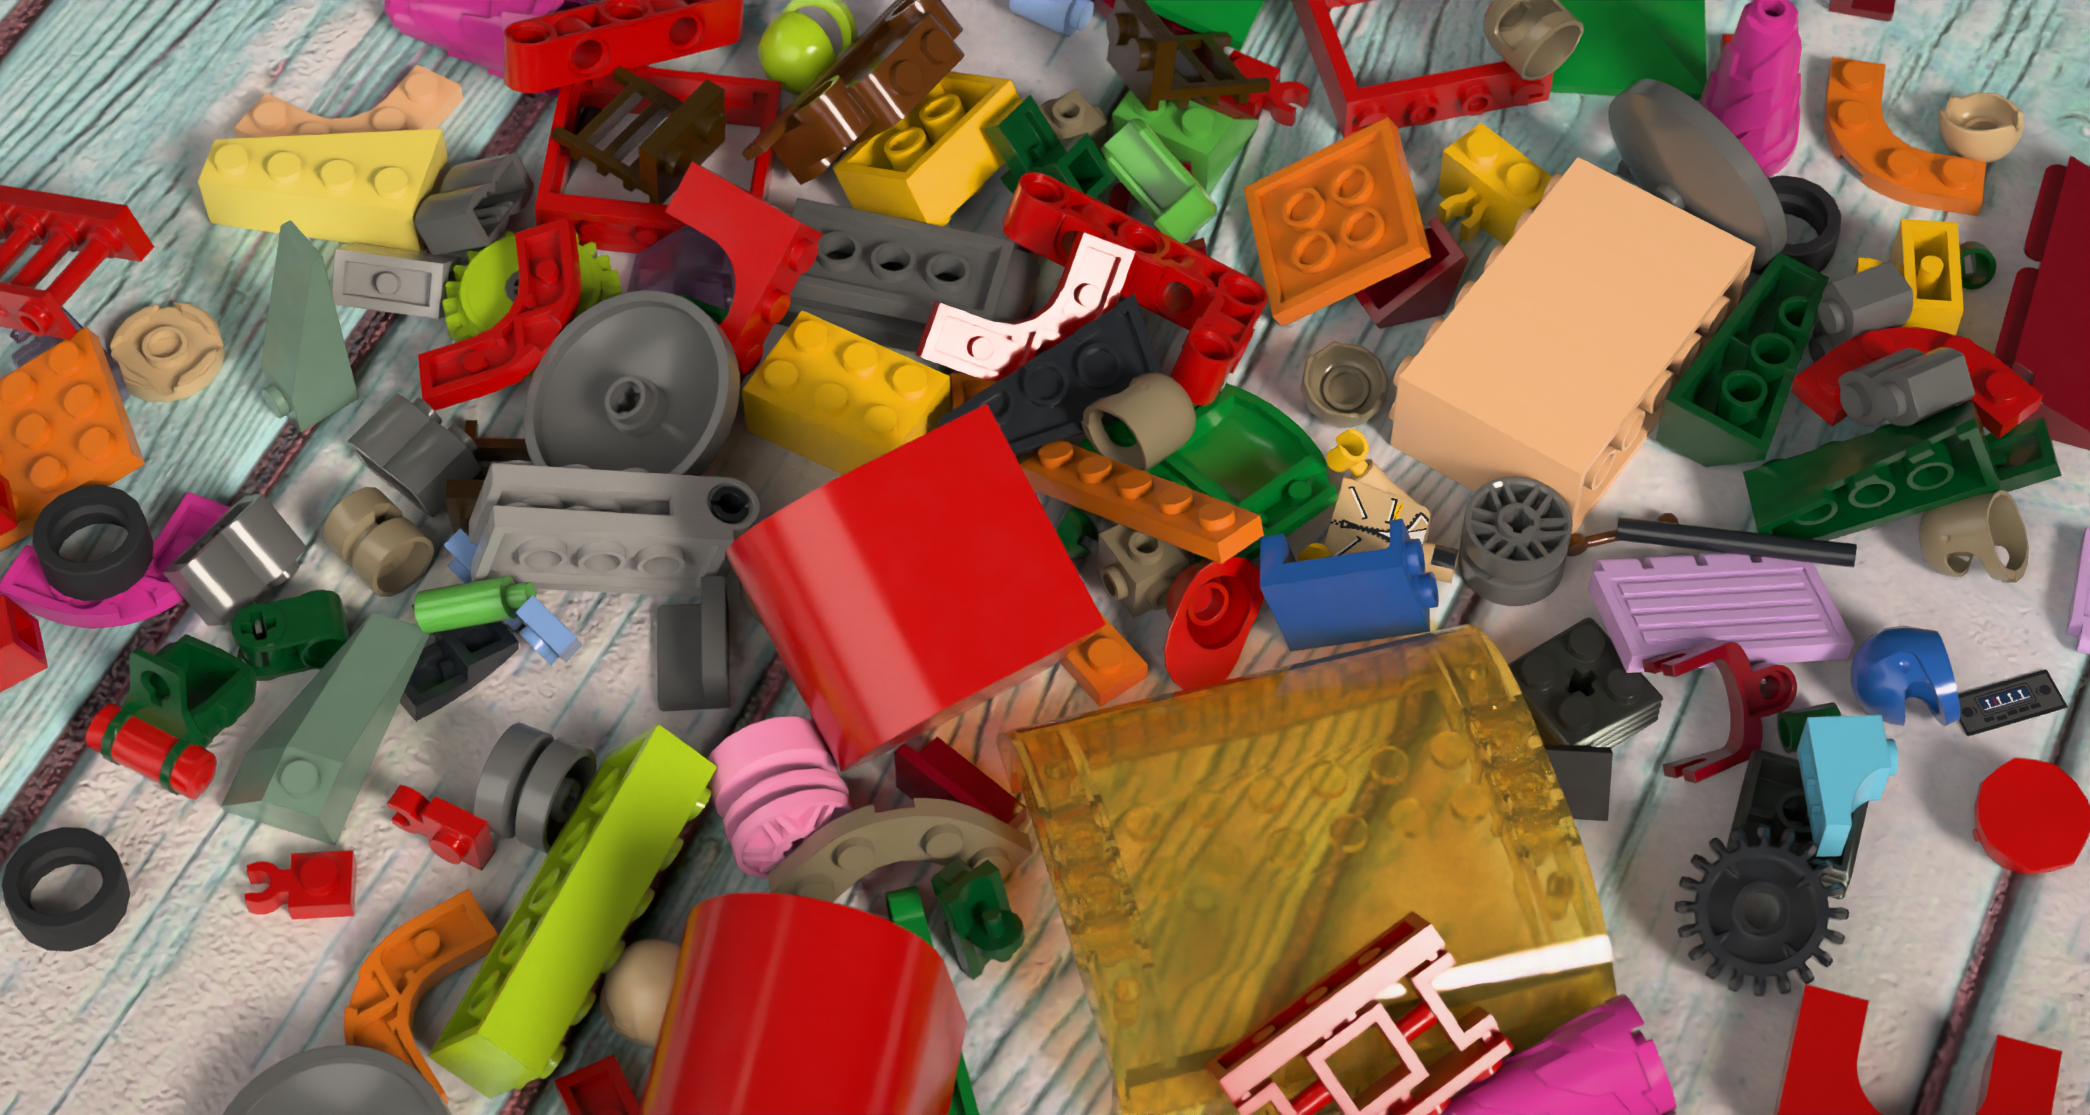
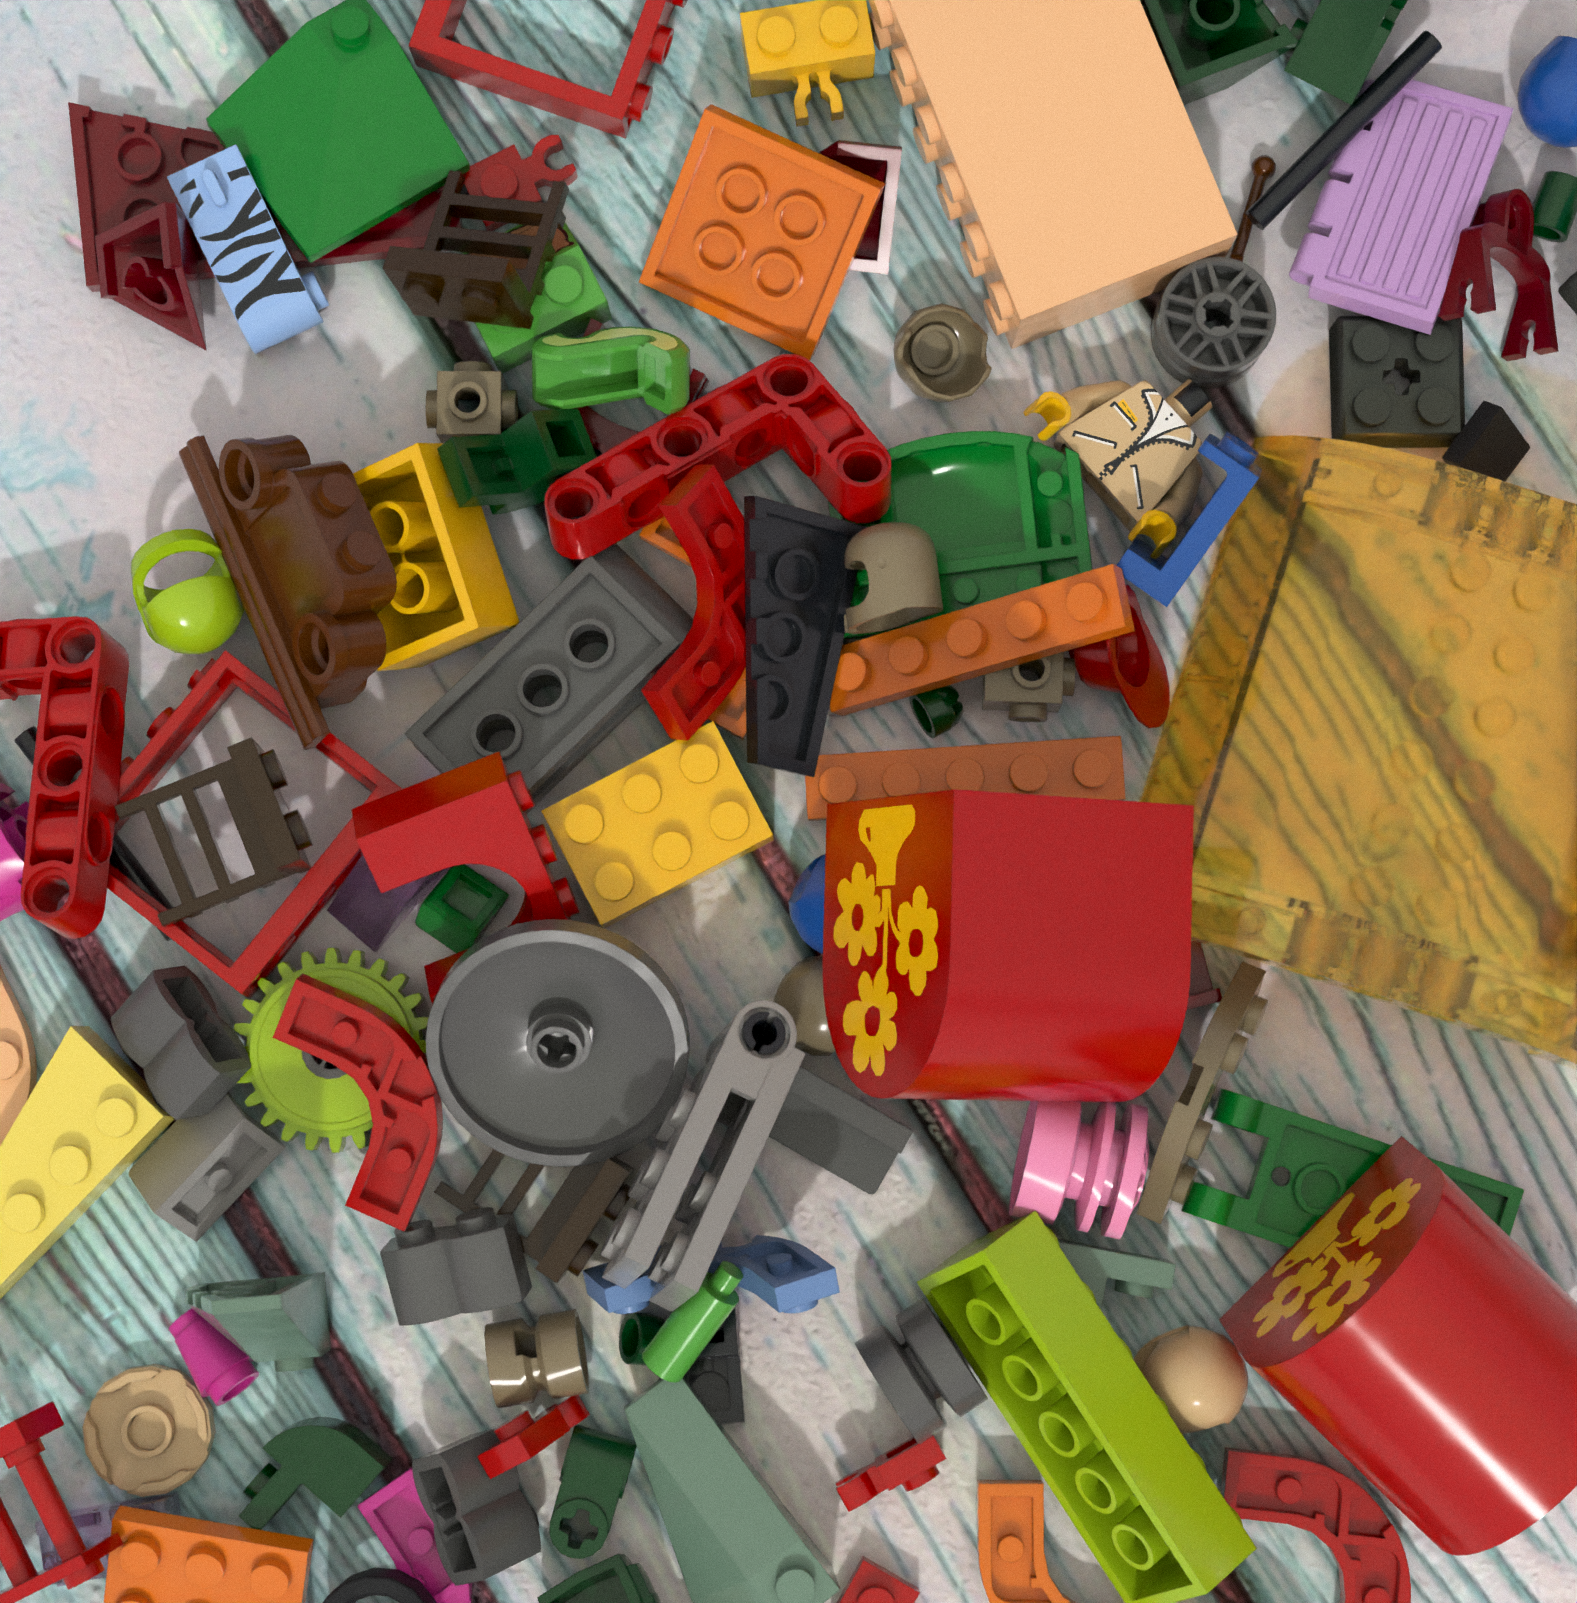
camera: 55 degrees left, 30 degrees up
(201, 449) = (325, 1457): none -> dark green brick
(242, 358) = (212, 1359): none -> dark pink cone
(312, 557) = (525, 1437): none -> red plate
(693, 874) = (1133, 1272): none -> sand green slope
(977, 915) = (1312, 1061): dark green hips -> none

